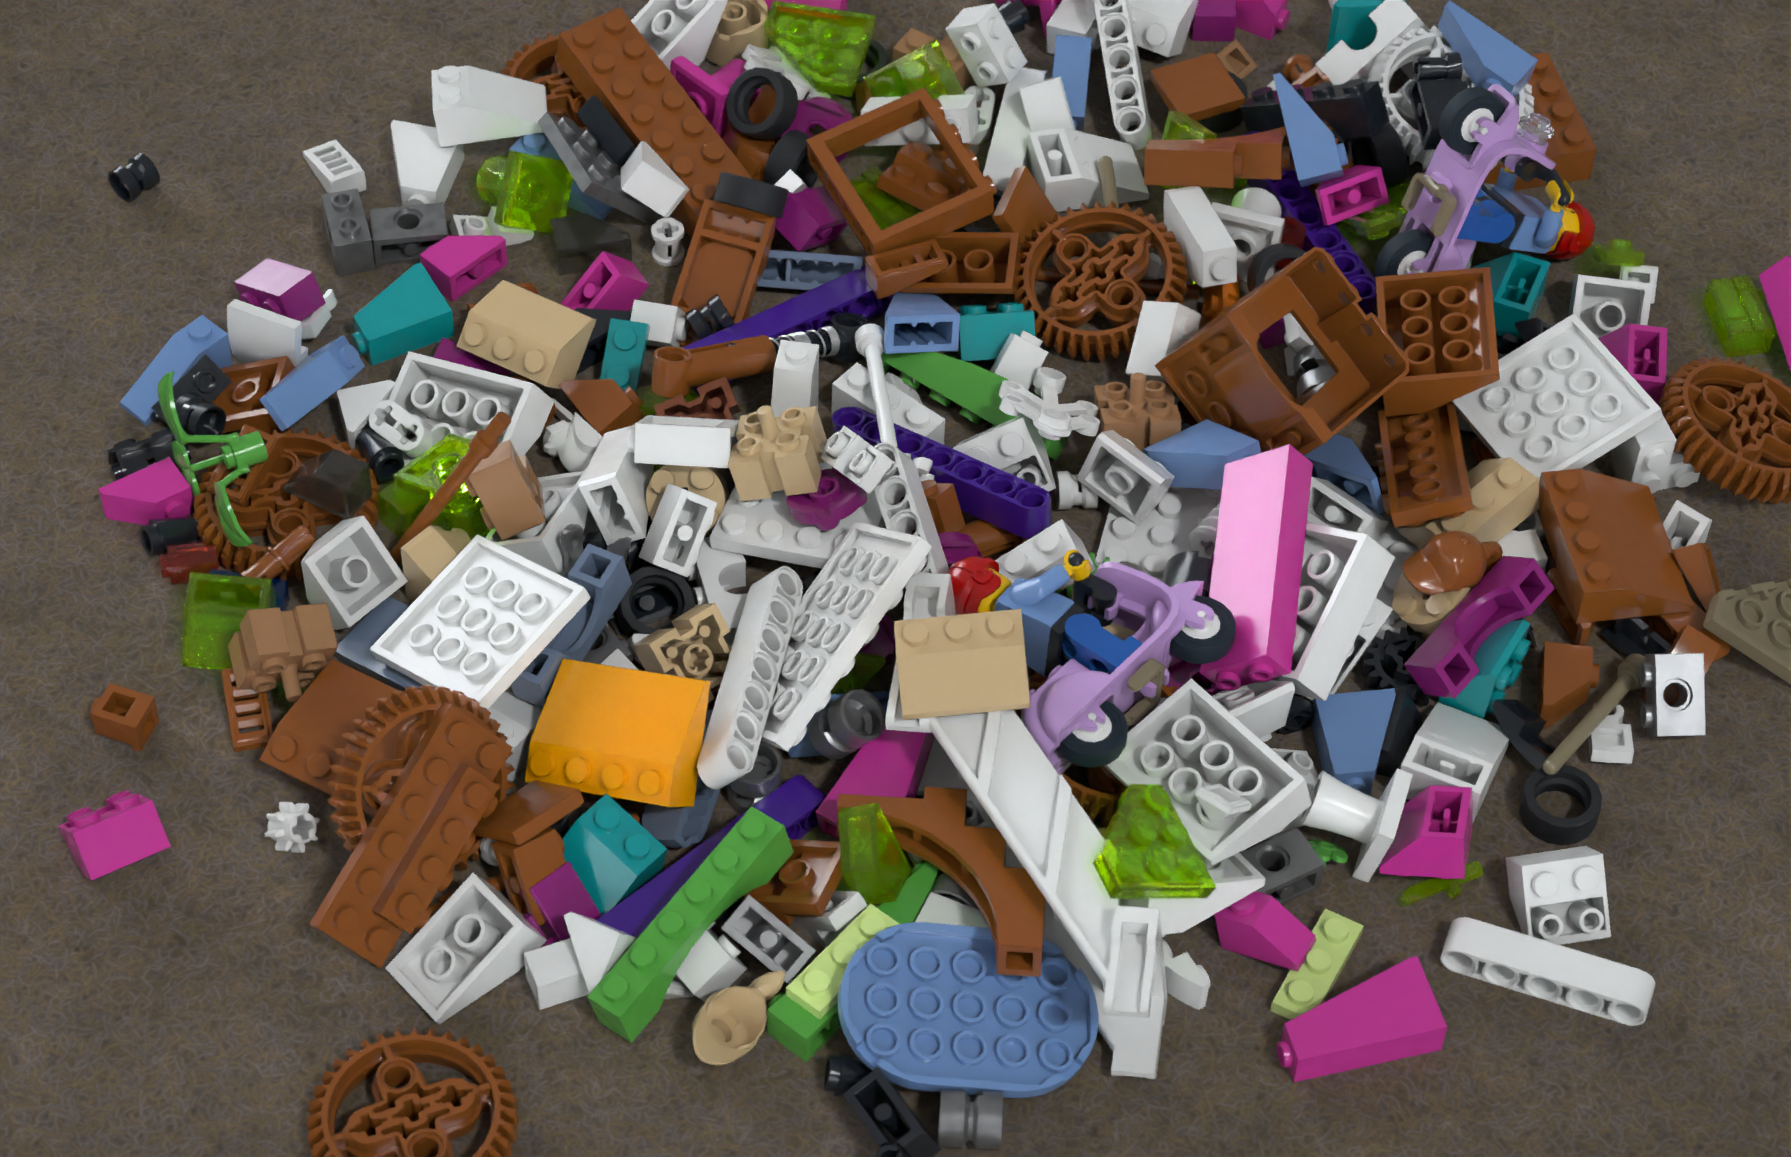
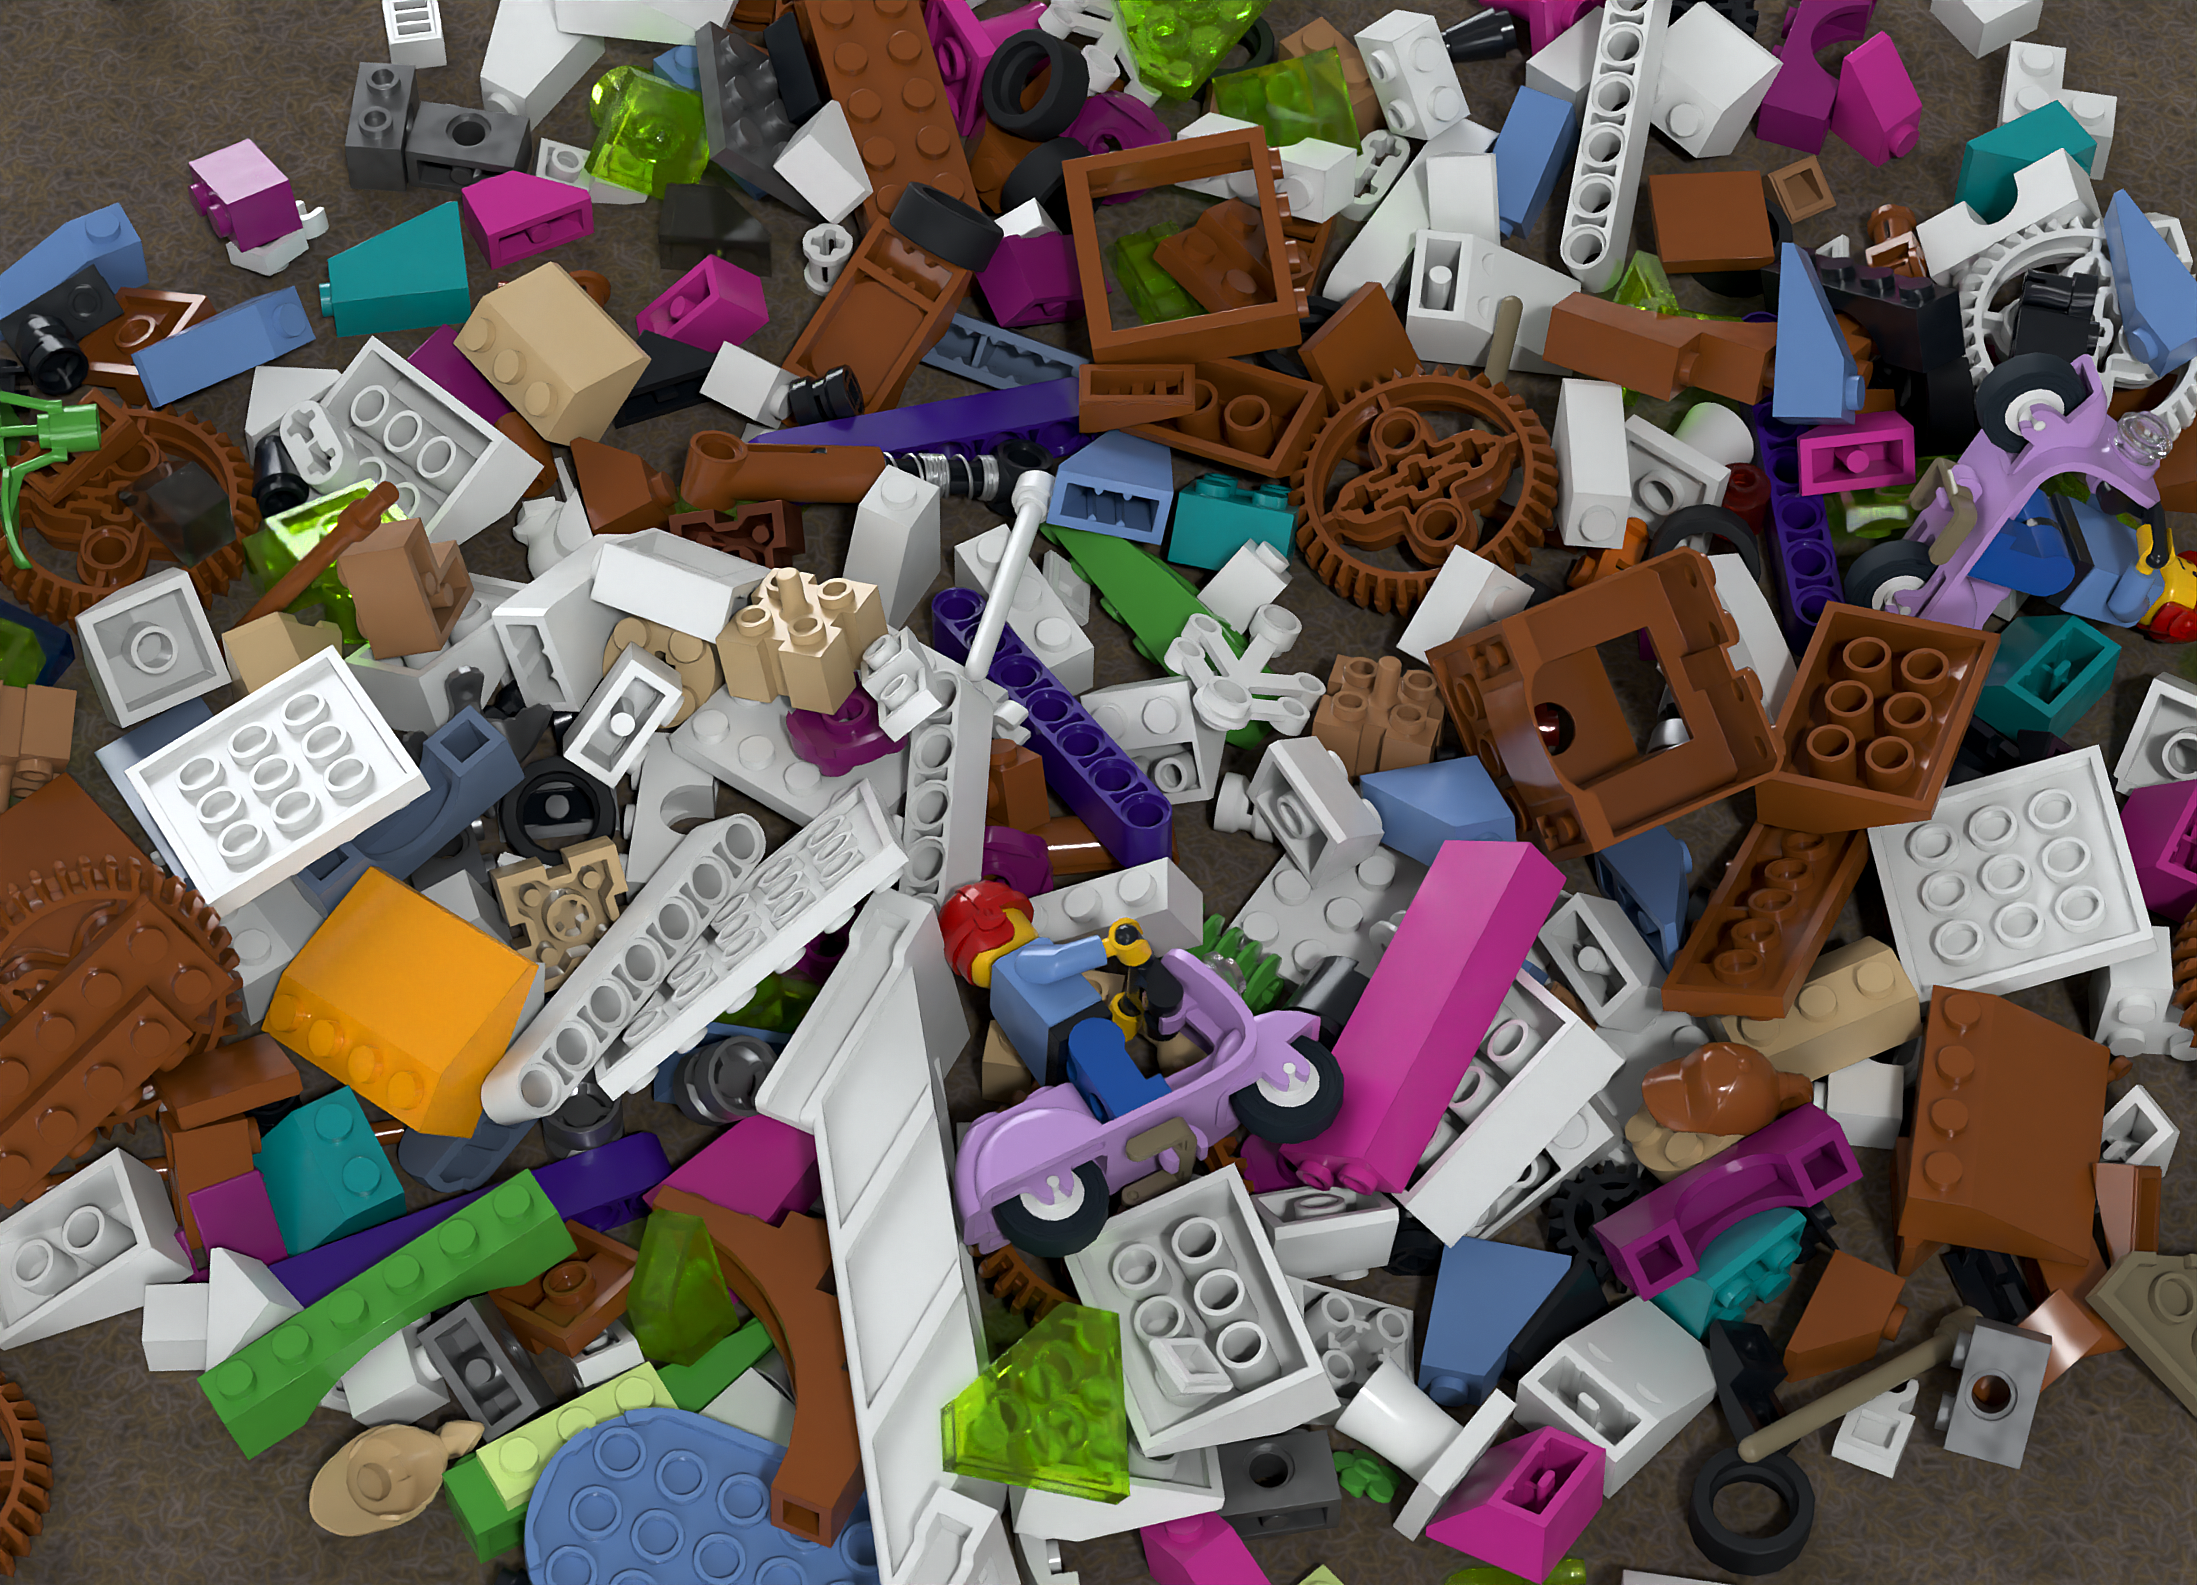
camera: 20 degrees right, 5 degrees up
(262, 334) = (186, 255): white slope -> none
(281, 555) = (65, 597): dark orange axle -> none
(625, 352) = (687, 406): teal plate -> none
(962, 664) = (884, 1050): tan slope -> none

